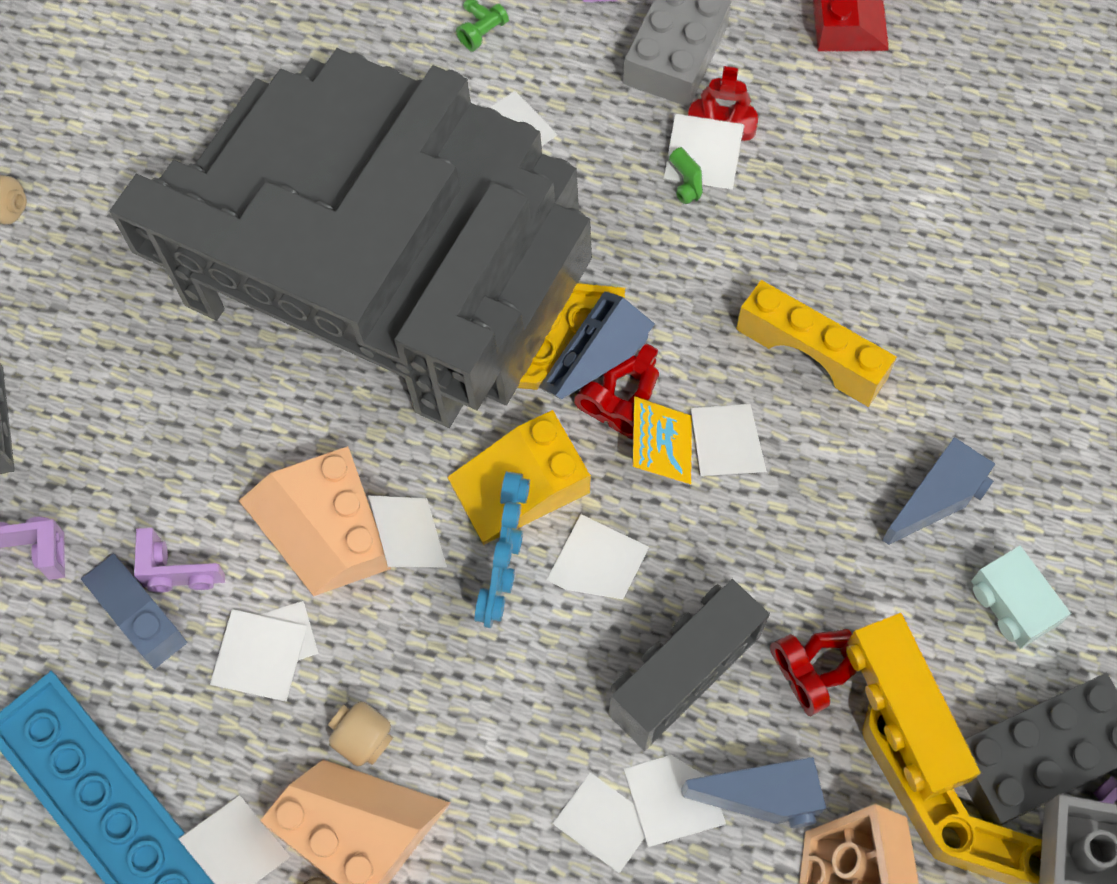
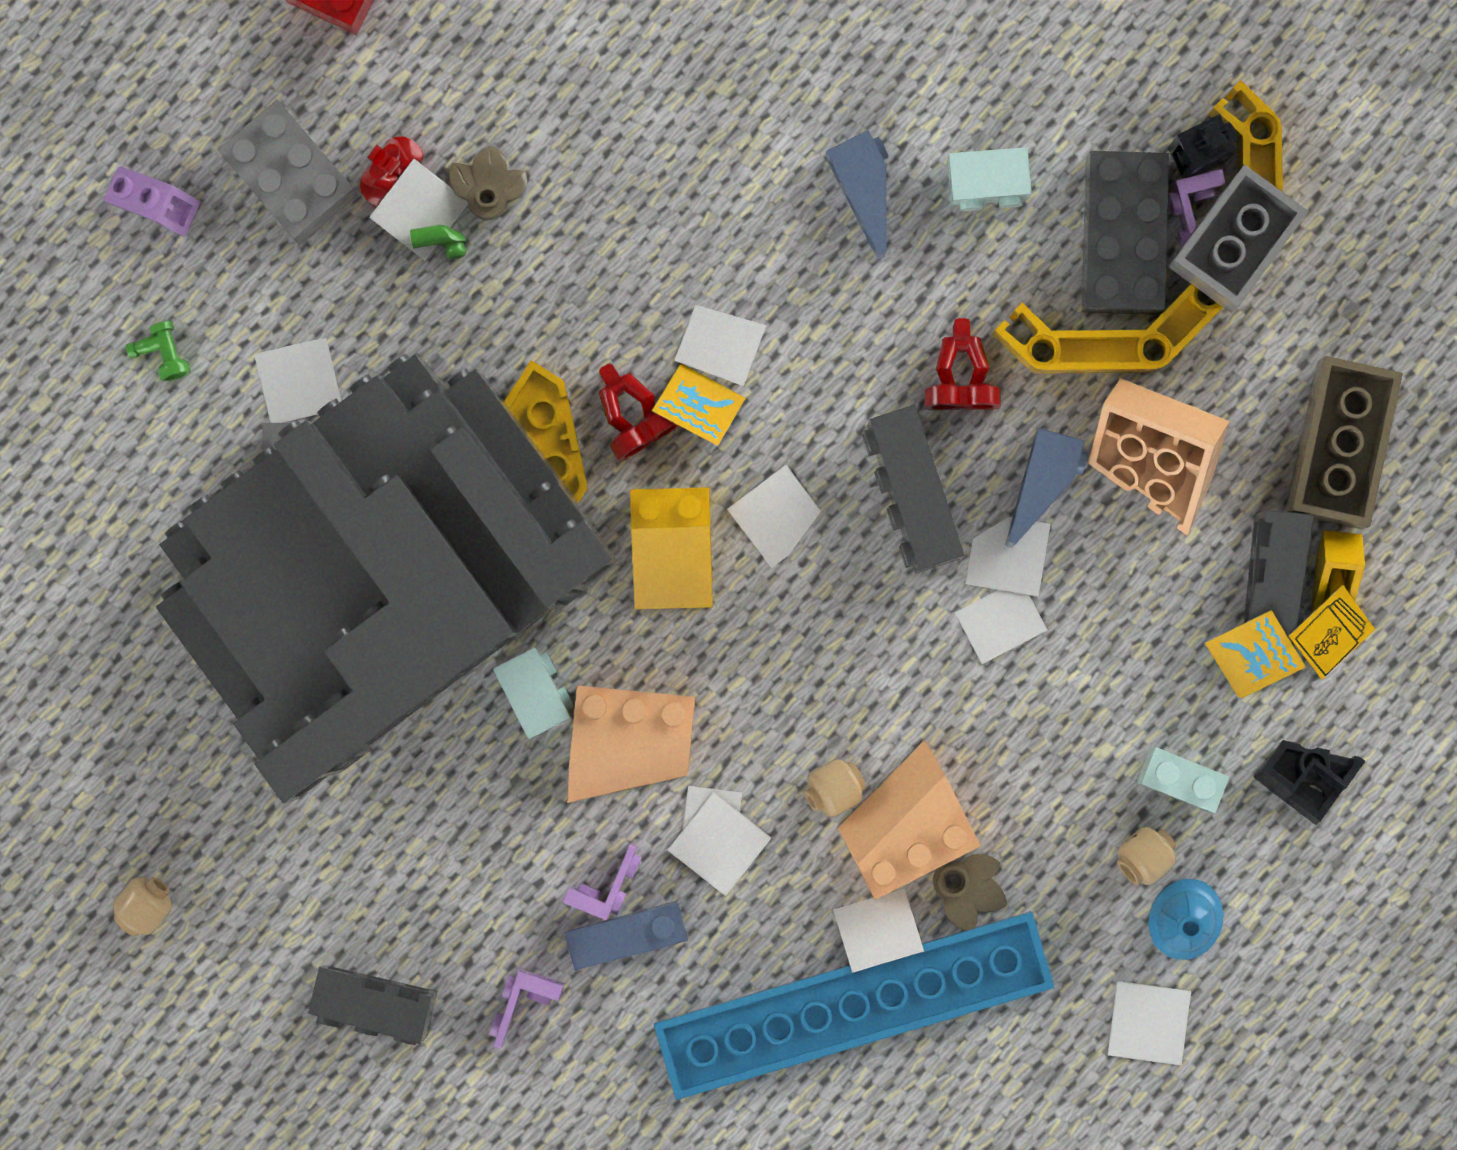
camera: 65 degrees left, 20 degrees up
(327, 419) = (533, 692): none -> light aqua brick
(407, 532) = (676, 668): white sticker -> none
(490, 602) = (783, 629): dark azure plant -> none
(602, 342) = (584, 416): sand blue slope -> none
(756, 193) = (487, 177): none -> dark tan plate
(852, 361) = (651, 228): yellow arch -> none
(912, 707) = (1042, 328): yellow brick -> none

